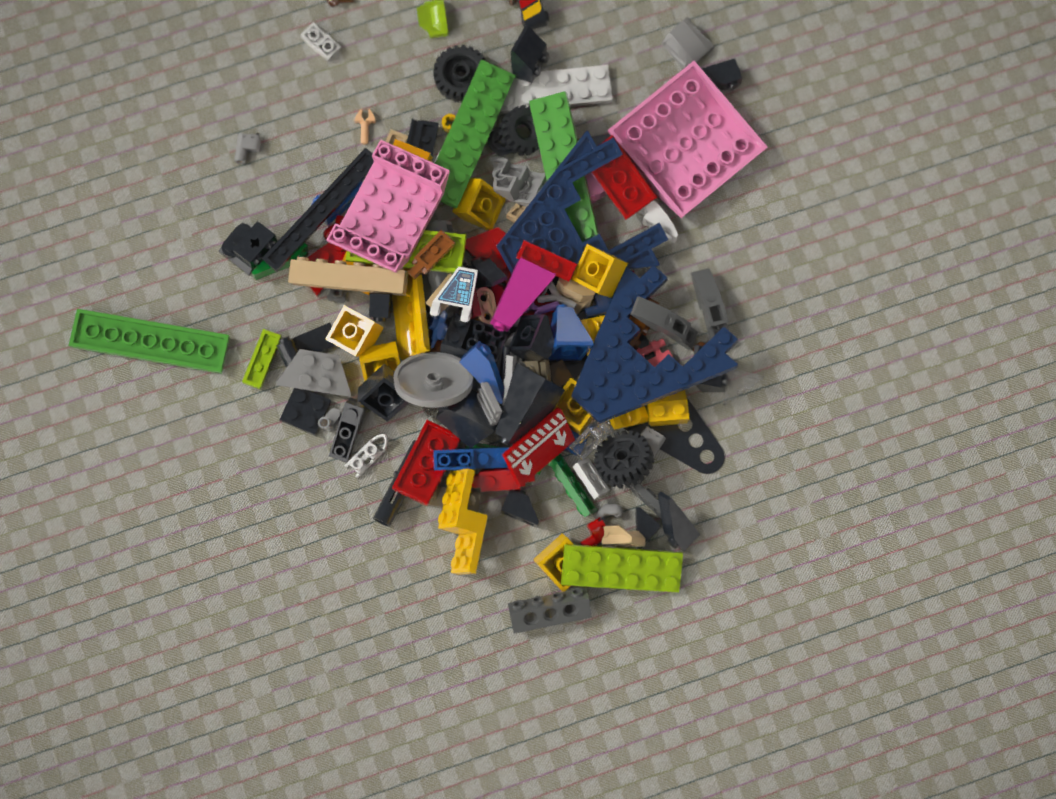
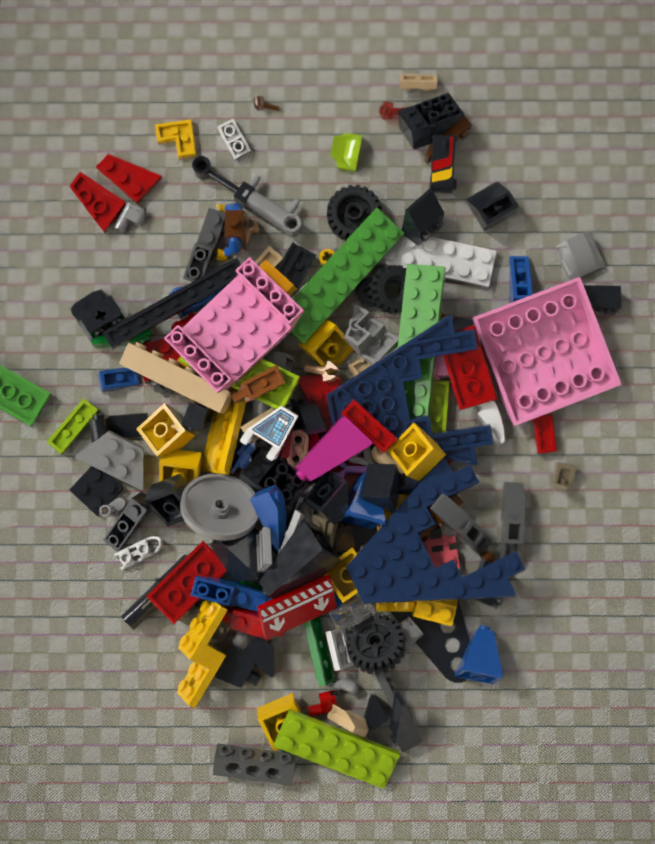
camera: 25 degrees right, 5 degrees up
(209, 140) = (97, 200): none -> red wing
(230, 110) = (128, 177): none -> red wing
(267, 52) = (178, 132): none -> yellow tile
(289, 301) = (117, 379): none -> blue slope
(329, 147) = (207, 243): none -> dark grey slope
(354, 91) = (251, 199): none -> light grey piece
(354, 125) = (234, 230): none -> torso
(484, 227) = (323, 371): none -> light nougat bar
(501, 528) = (237, 668): none -> black torso
(578, 311) = (382, 486): none -> black slope
(589, 23) = (492, 205): none -> black slope
(605, 223) = (439, 406): none -> lime plate
(638, 82) = (519, 278): none -> blue slope
(712, 217) = (544, 434): none -> red plate
(727, 442) = (481, 658): none -> blue slope
(744, 250) = (563, 476): none -> dark tan plate

